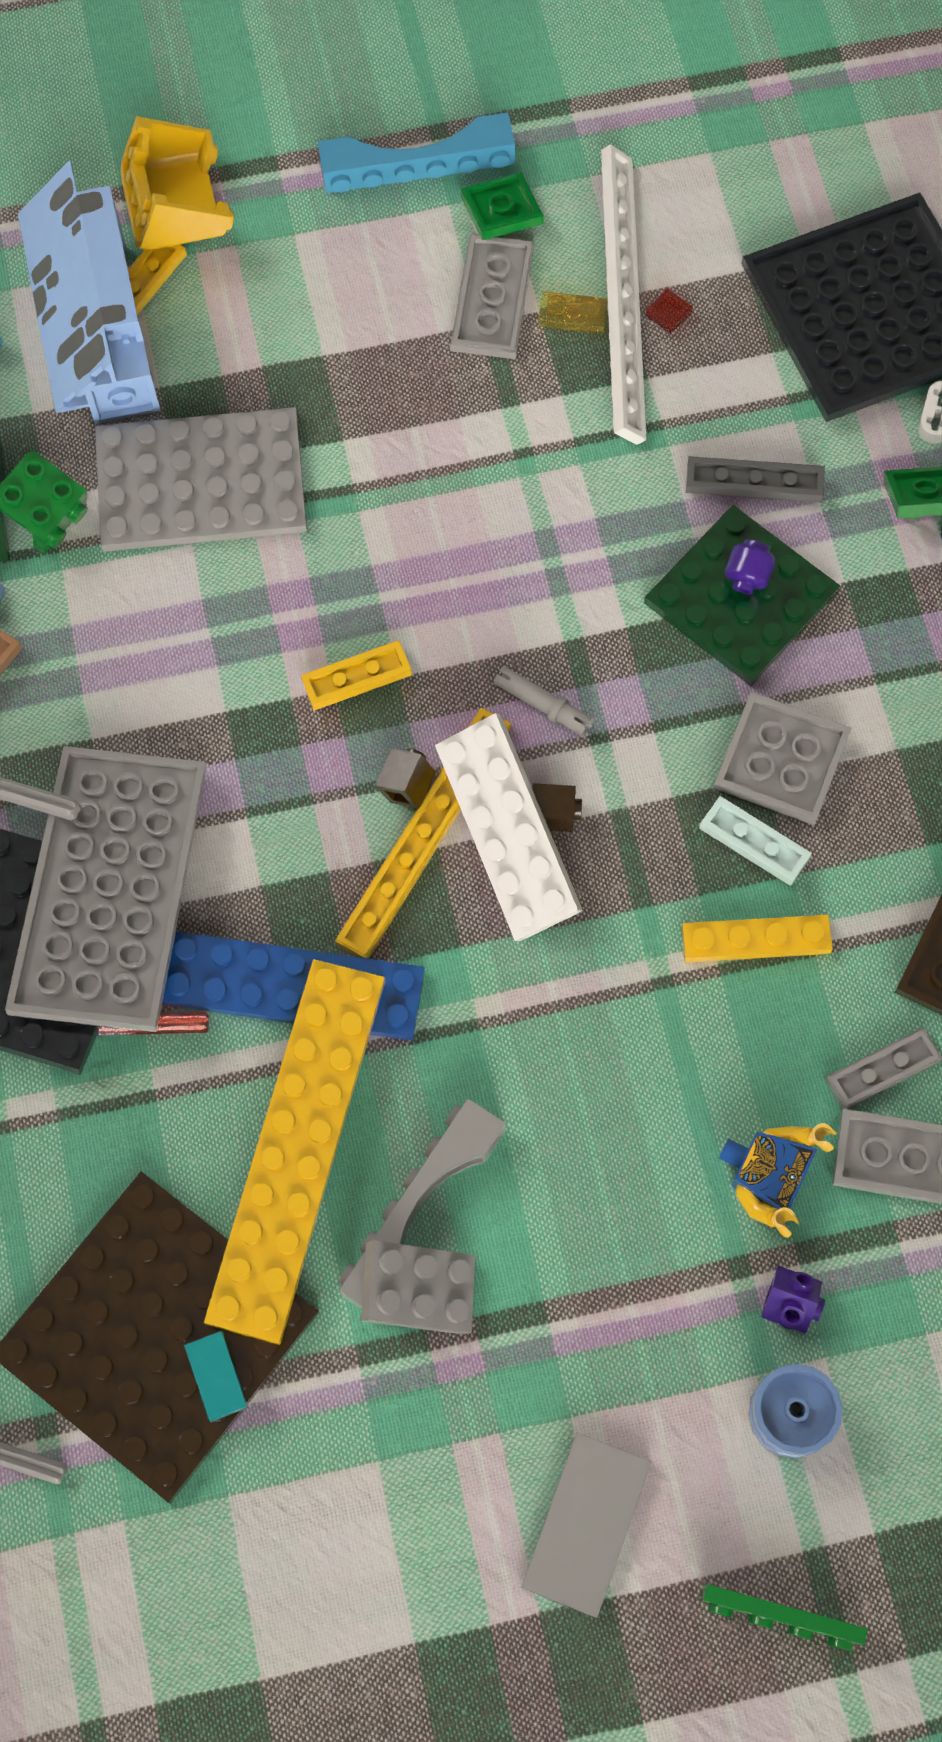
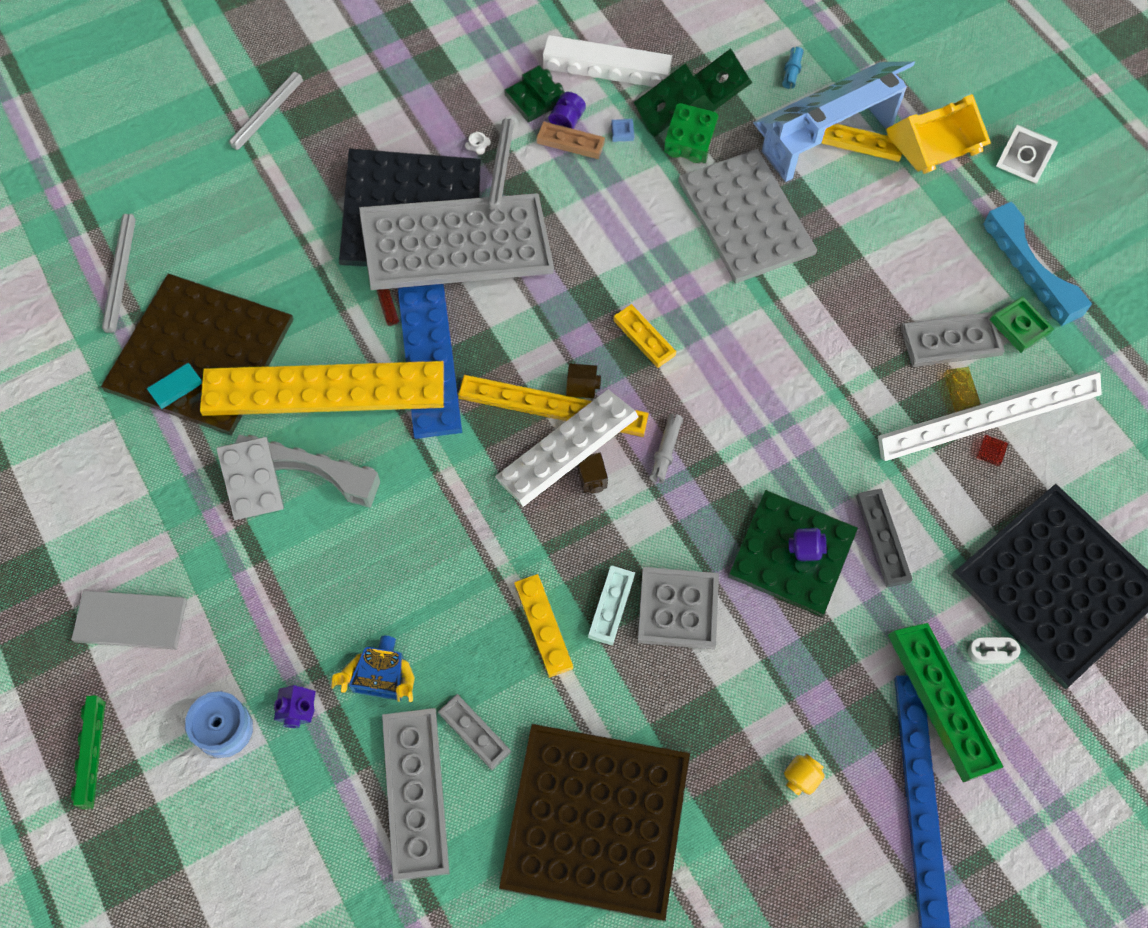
camera: 70 degrees right, 5 degrees down
(240, 94) = (1027, 153): none -> white slope

